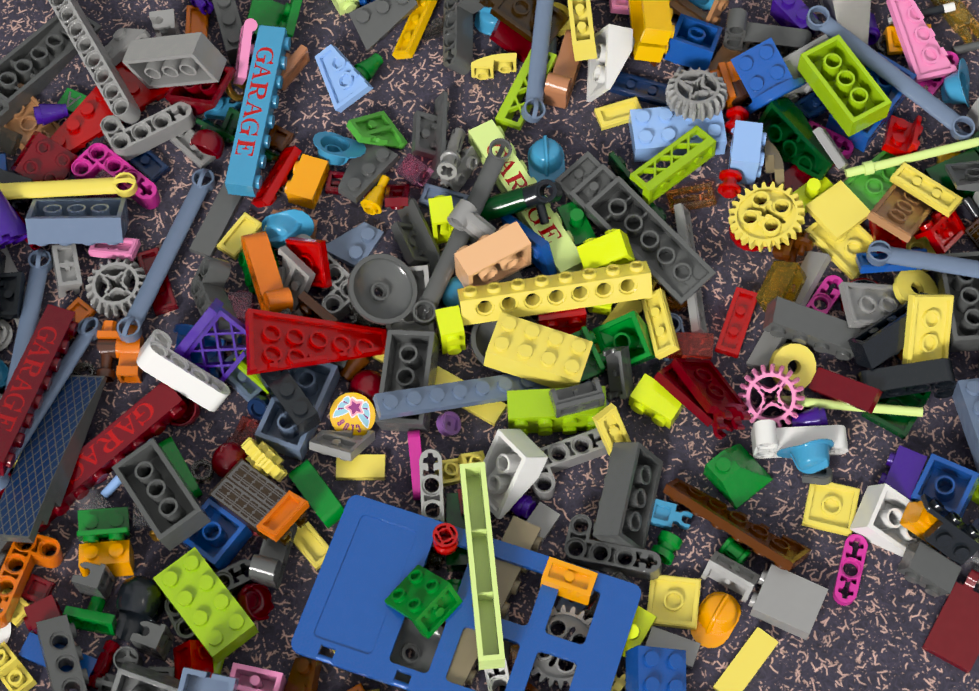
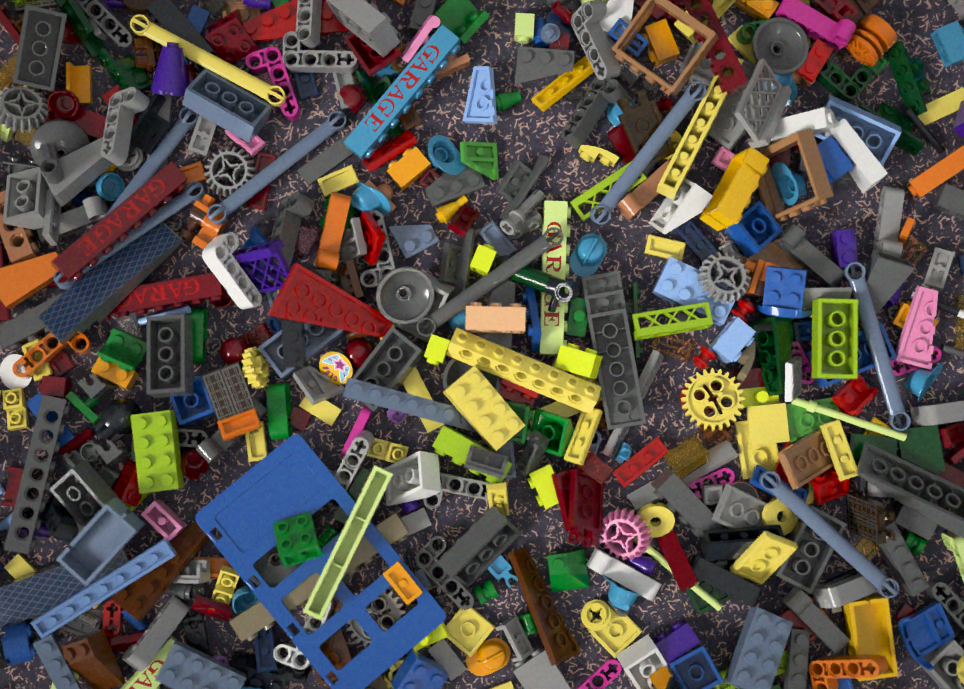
camera: 30 degrees right, 20 degrees up
(343, 489) = (299, 418): none -> dark red tile
(414, 171) = (488, 208): clear pink brick -> none
(445, 545) = (337, 507): red wheel -> none
(465, 218) = (495, 279): light grey piece -> none
(713, 320) = (623, 453): none -> dark azure plate
(793, 493) = (596, 606): none -> light yellow gear
(832, 305) = (711, 493): none -> light grey tile

